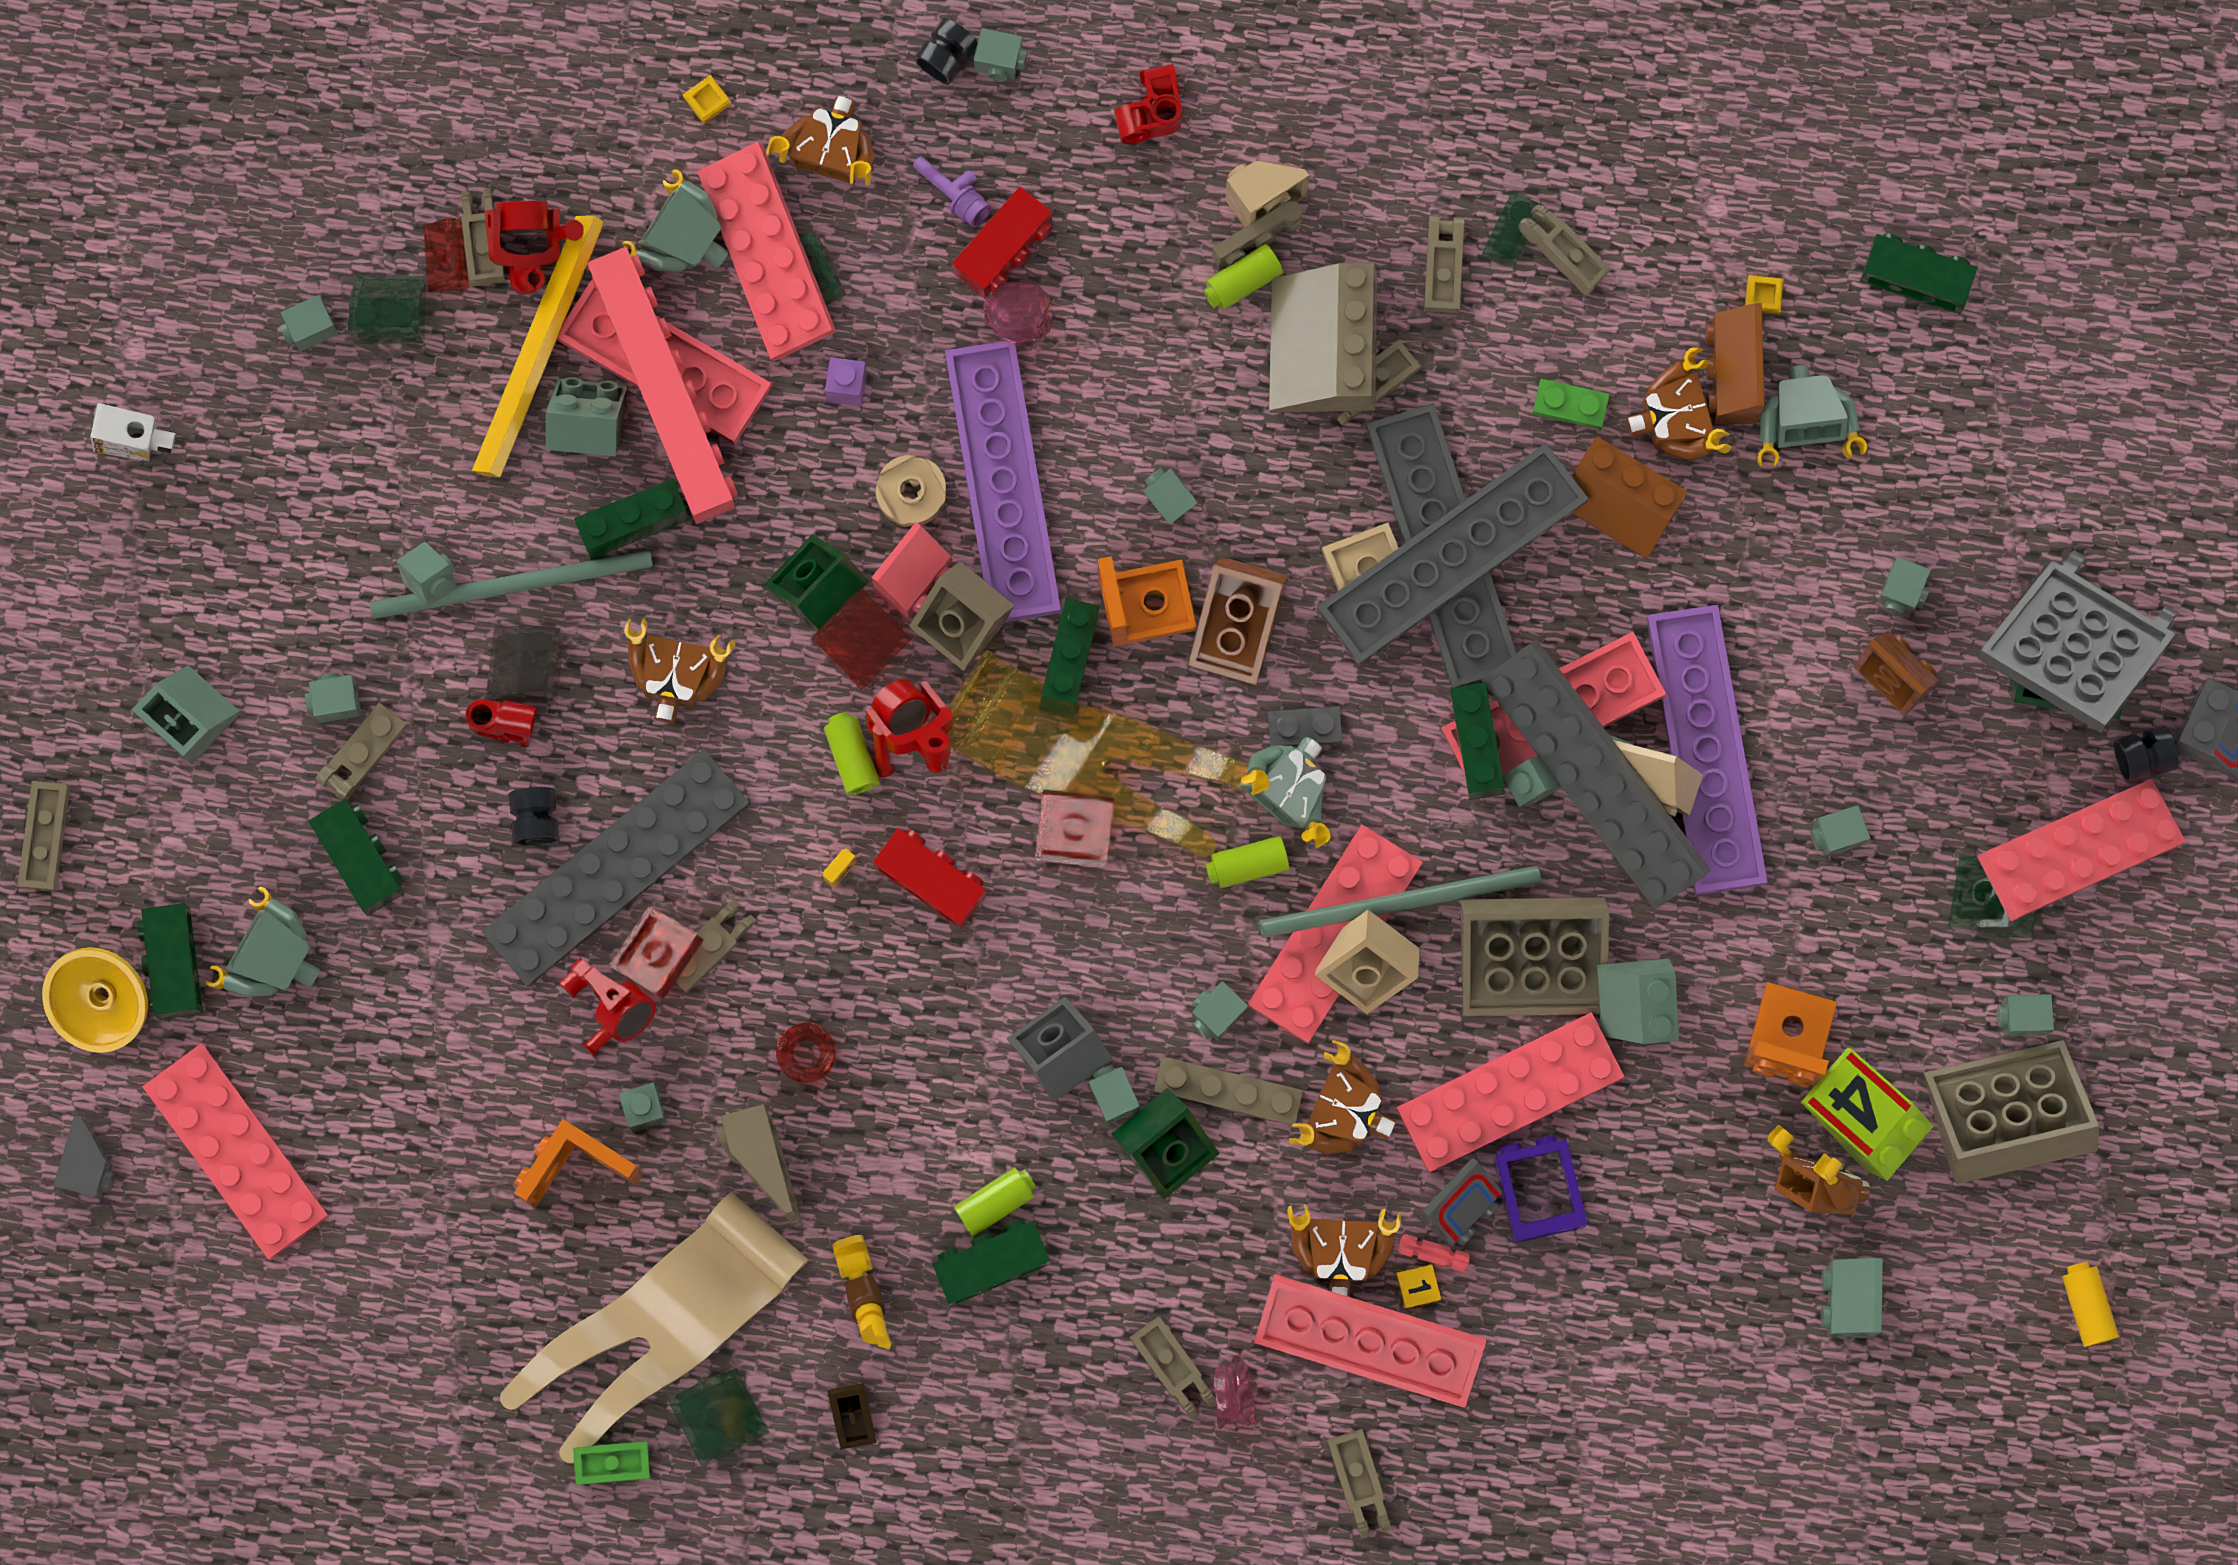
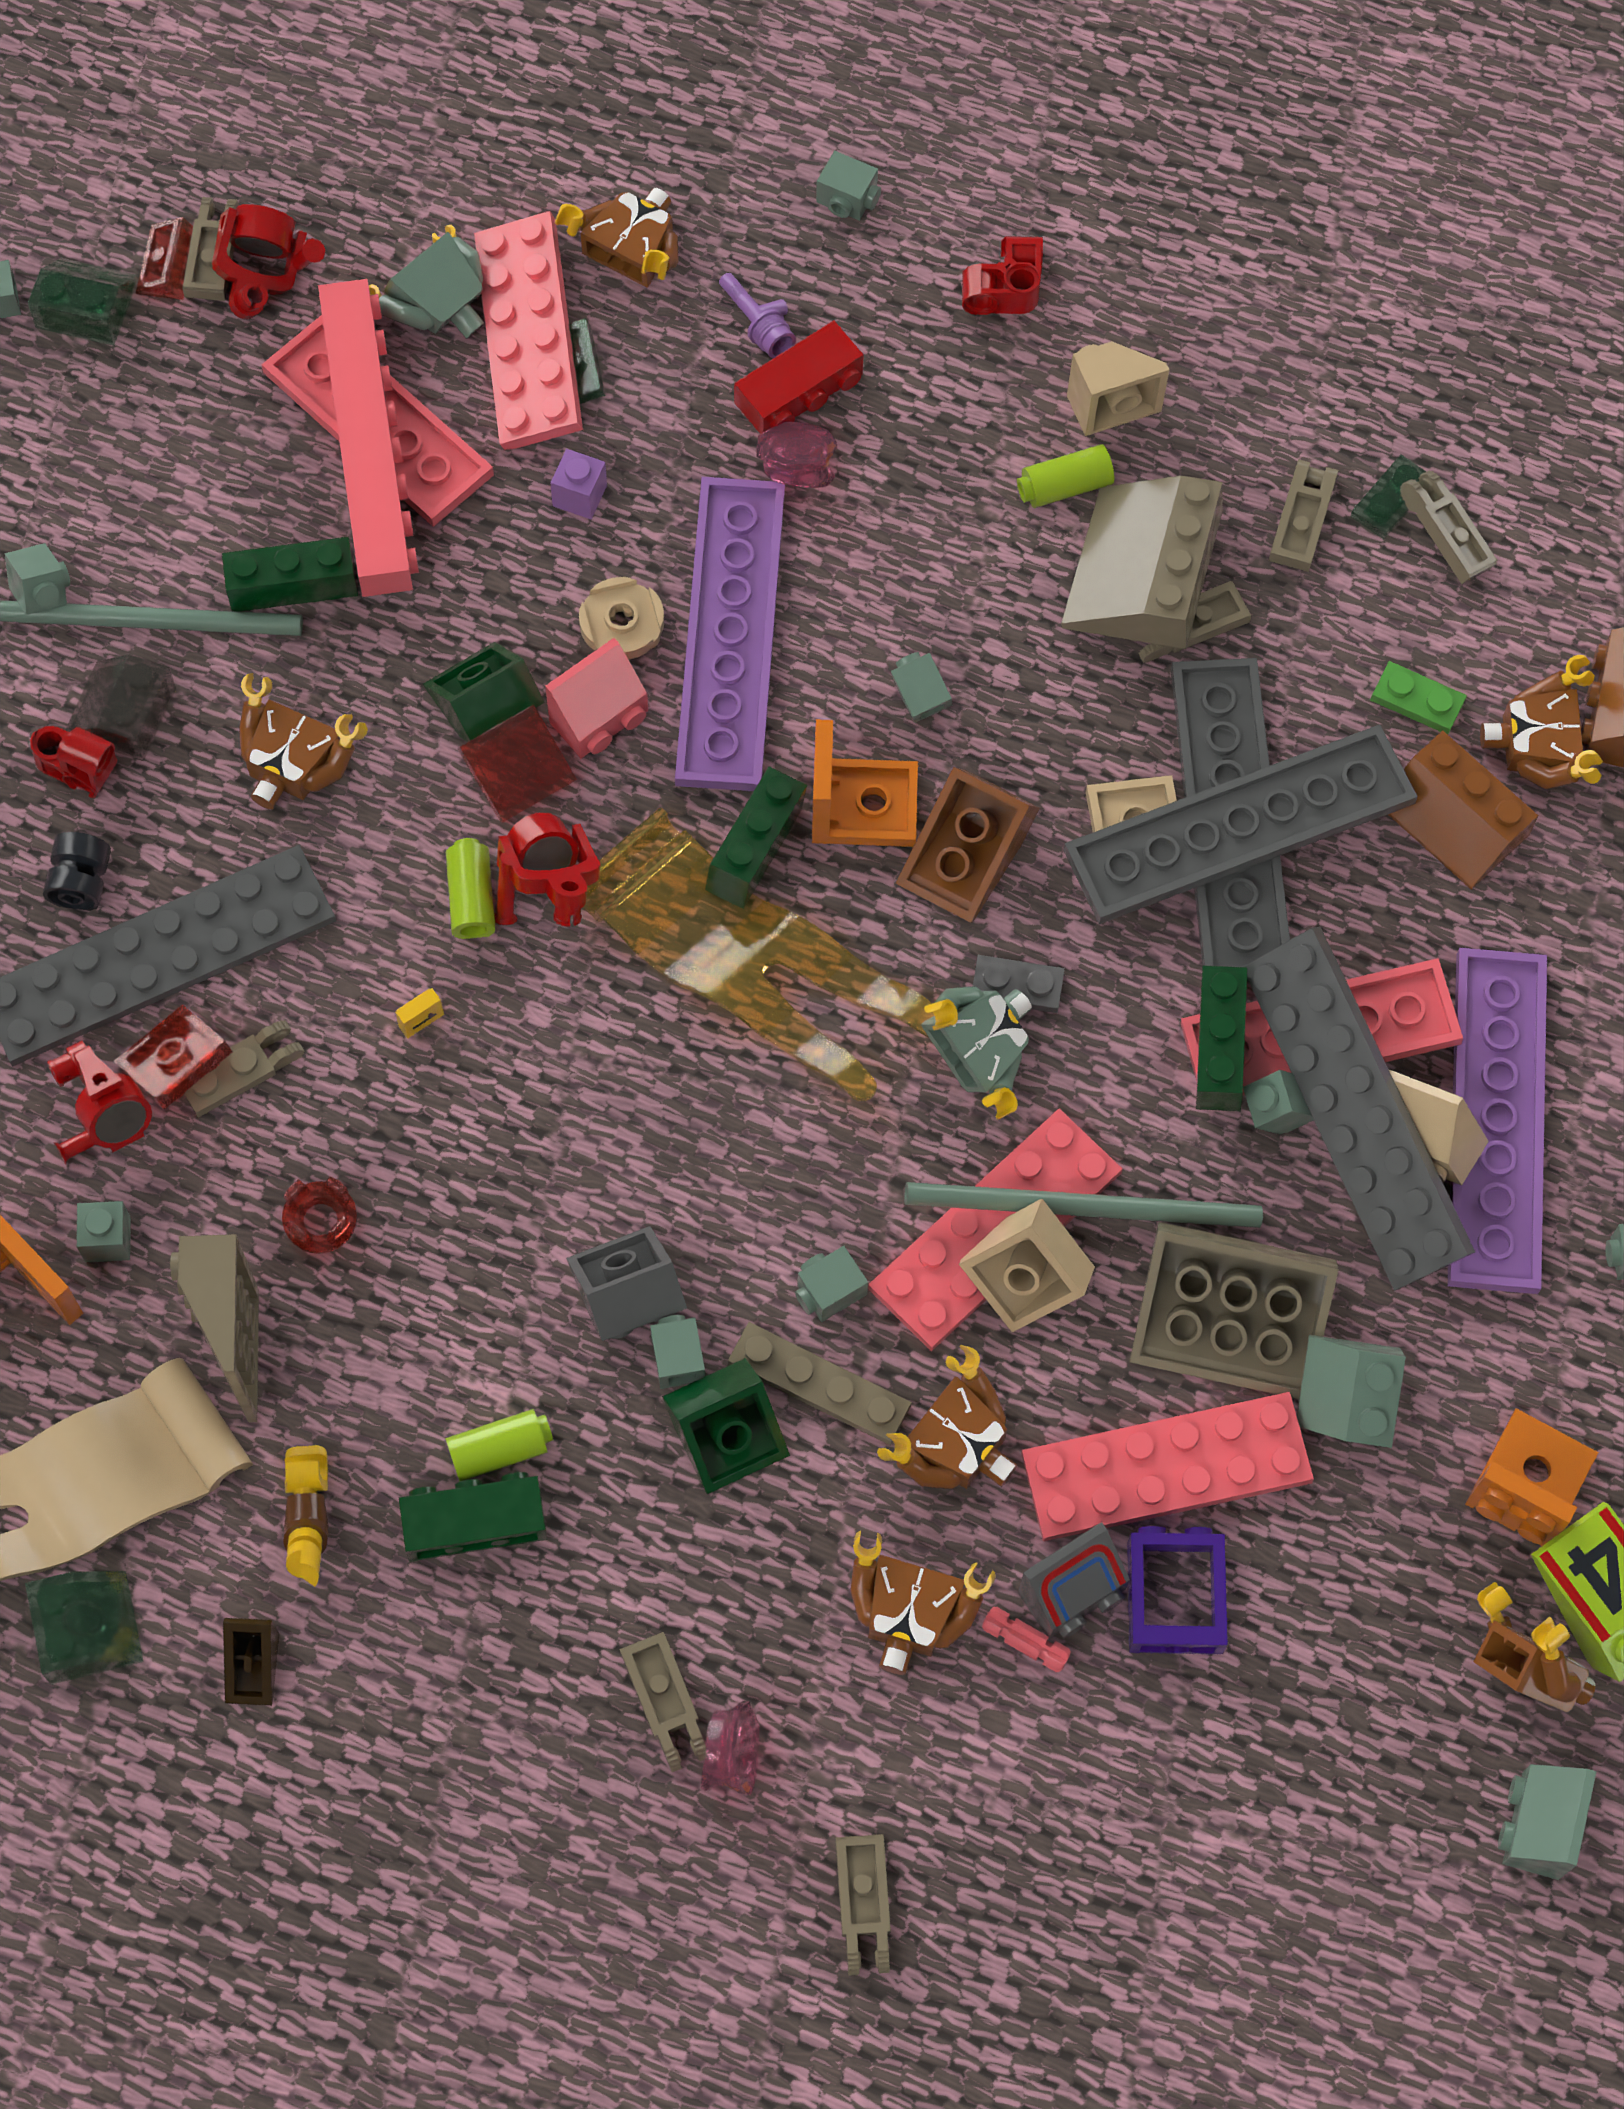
camera: 10 degrees right, 10 degrees down
(536, 350) = (237, 374): yellow tile -> none
(586, 416) = (270, 456): sand green slope -> none
(707, 99) = (507, 165): yellow tile -> none
(930, 877) = (525, 1048): red brick -> none
(938, 60) = (787, 170): black wheel -> none
(961, 615) = (640, 758): dark tan slope -> none
(1074, 828) = (711, 1030): clear red plate -> none
(1248, 862) = (910, 1120): lime brick -> none
(1258, 233) = (1107, 428): dark tan plate -> none
(1370, 1341) = (920, 1725): coral plate -> none
(1418, 1286) = (997, 1676): yellow tile -> none

